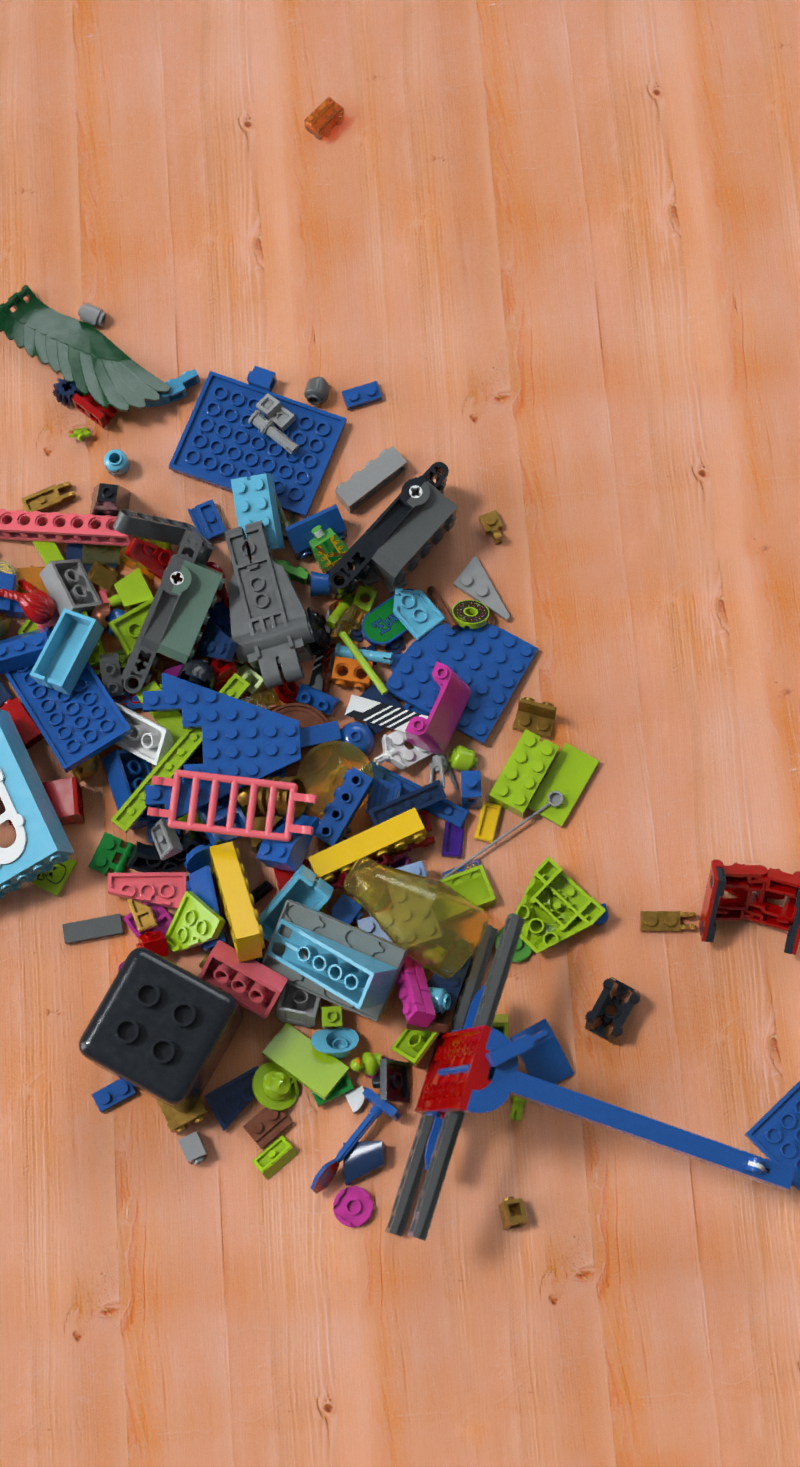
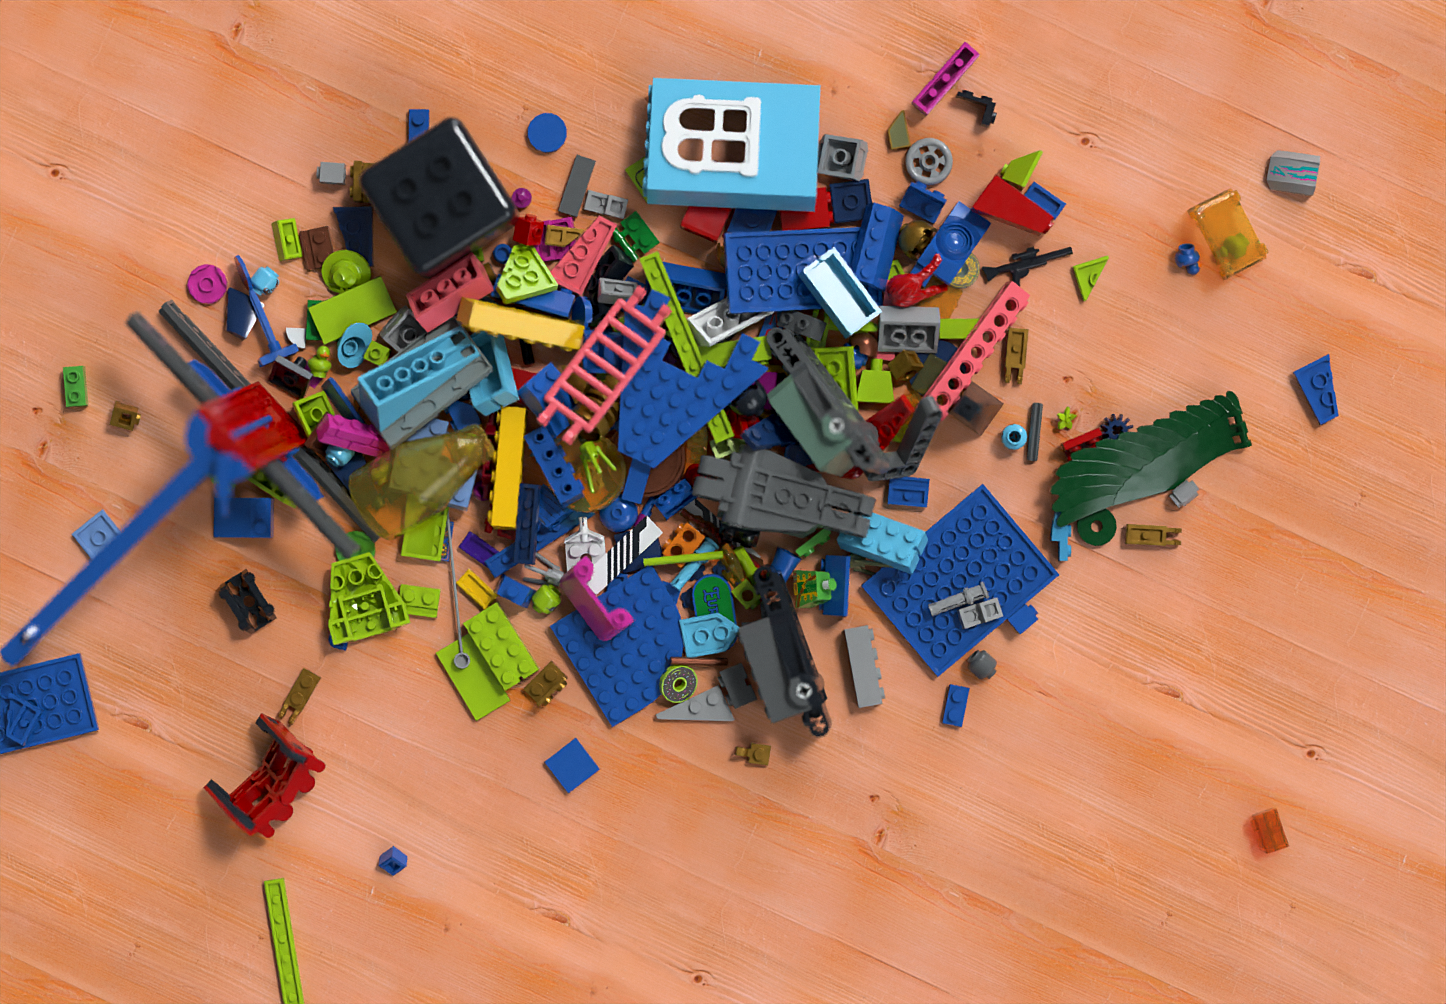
camera: 110 degrees right, 15 degrees up
(46, 764) = (751, 220): none -> blue plate
(59, 980) = (547, 132): none -> blue tile
(96, 895) = (605, 204): none -> light grey slope
(100, 453) = (1034, 432): none -> dark grey axle
(140, 323) = (1150, 535): none -> pearl gold hinge
(157, 356) = (1104, 535): none -> dark green tile
(186, 959) = (501, 253): none -> blue plate
(316, 783) = (590, 453): none -> lime plant
(321, 1153) = (265, 281): none -> medium azure head
(342, 719) = (646, 510): none -> blue piece
(391, 1027) = (340, 400): none -> slope
(443, 571) = (738, 691): none -> dark grey brick
(511, 1274) = (75, 386): none -> bright green piece
(523, 863) = (420, 600): none -> lime plate
(589, 664) = (572, 765): none -> blue tile
(633, 1176) = (96, 533): none -> medium blue tile
(758, 764) = (393, 860): none -> blue slope

